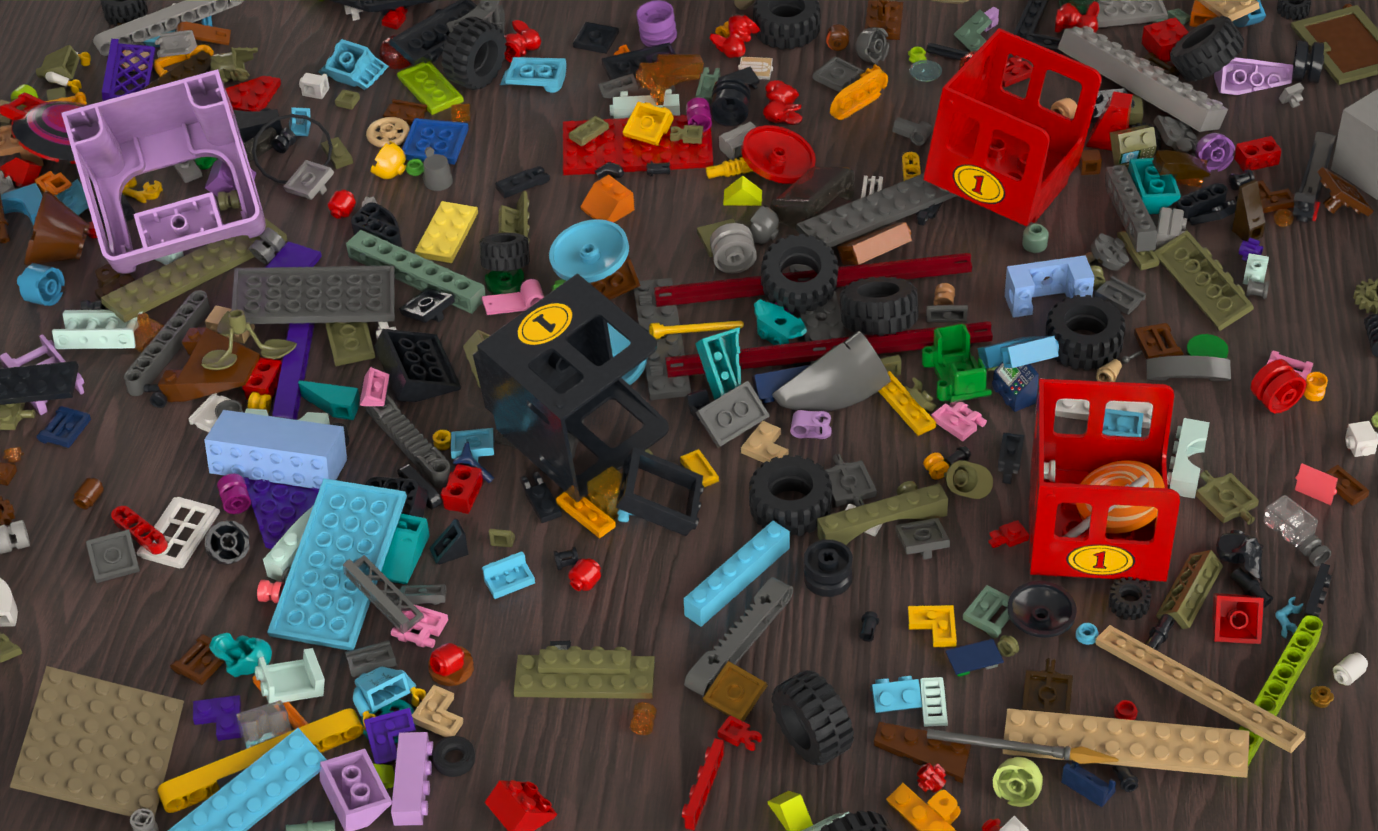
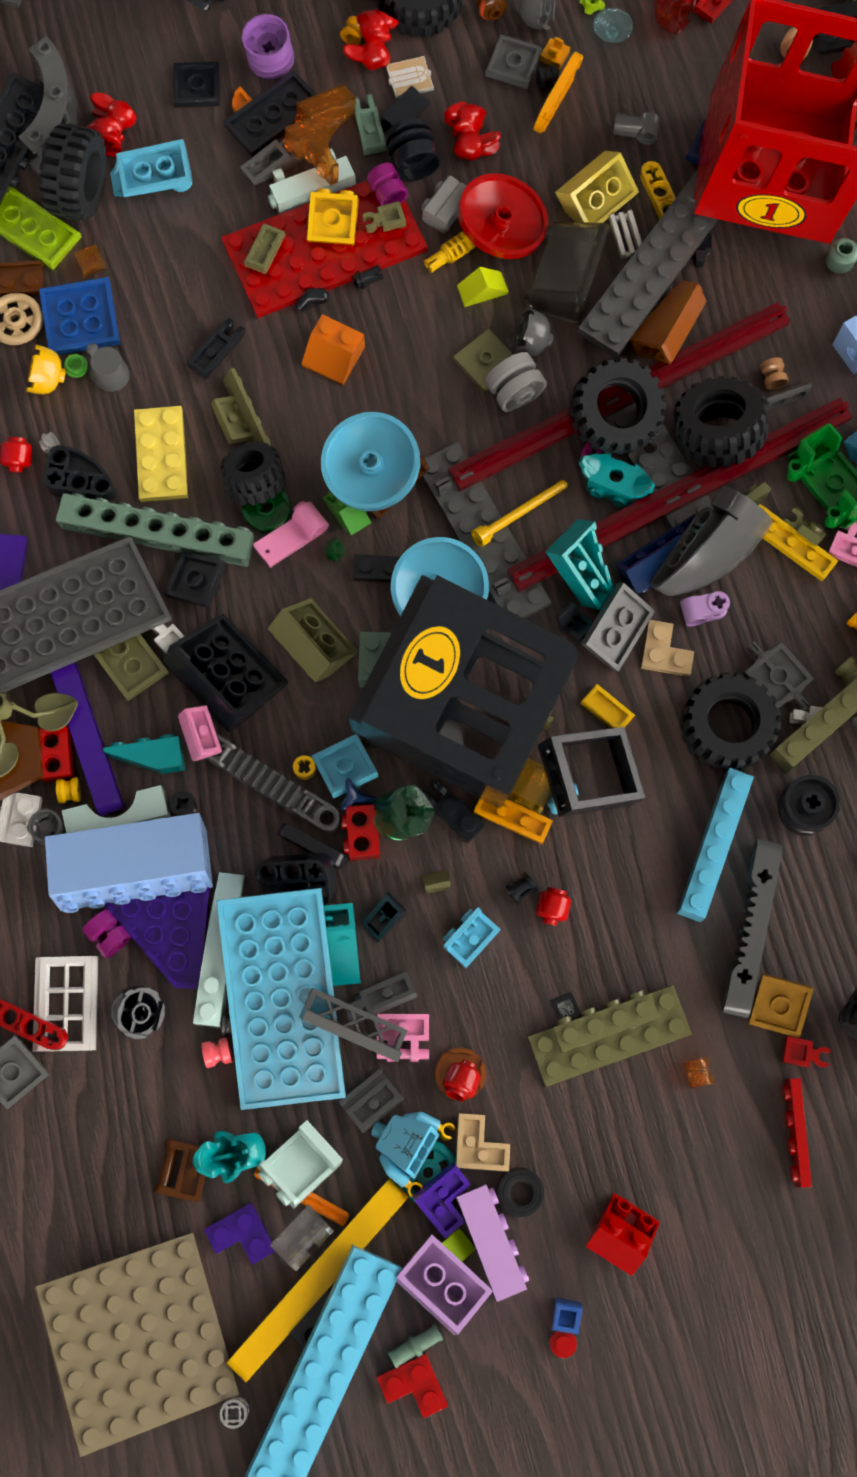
camera: 25 degrees left, 30 degrees up
(498, 478) = (403, 813): none -> clear green brick
(864, 157) = (598, 189): none -> light yellow slope

